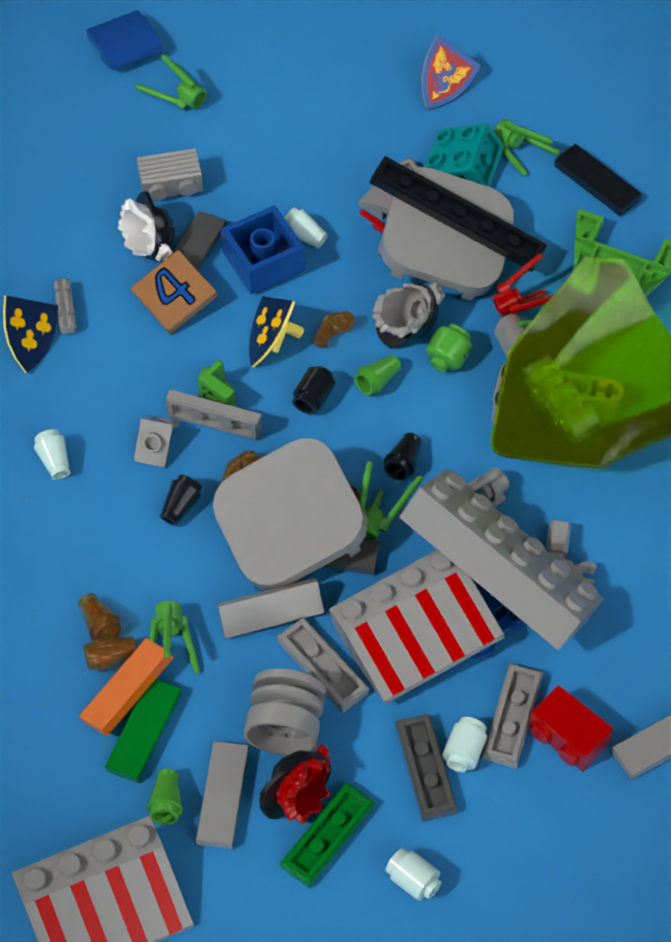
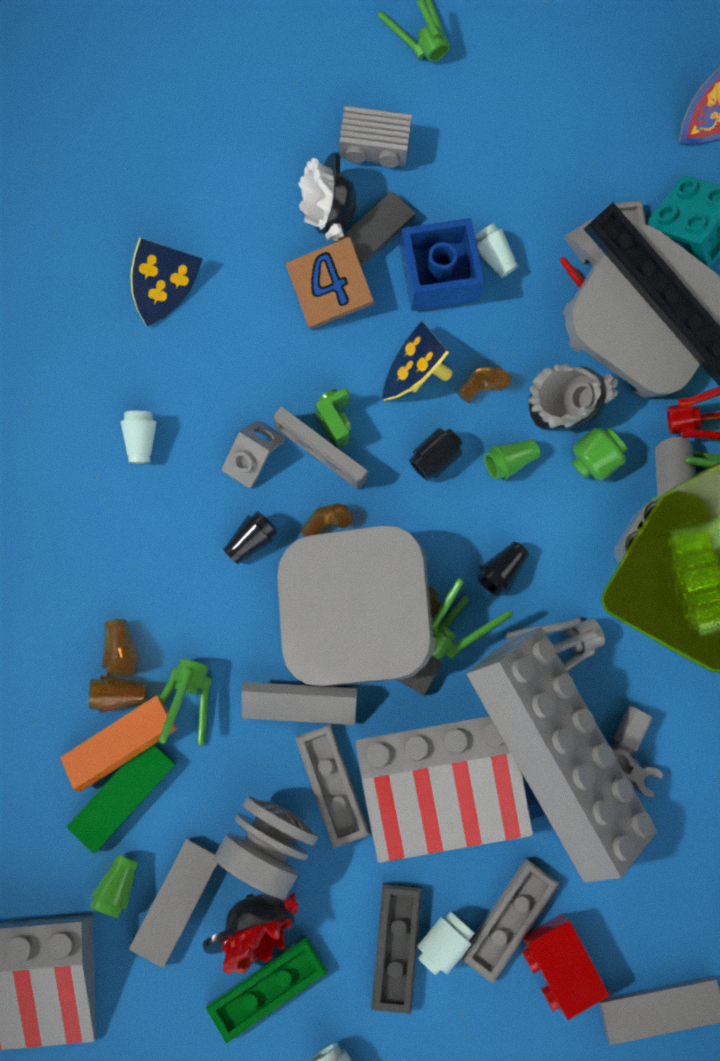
camera: 15 degrees right, 20 degrees up
(65, 304) = (212, 259): light grey axle -> none

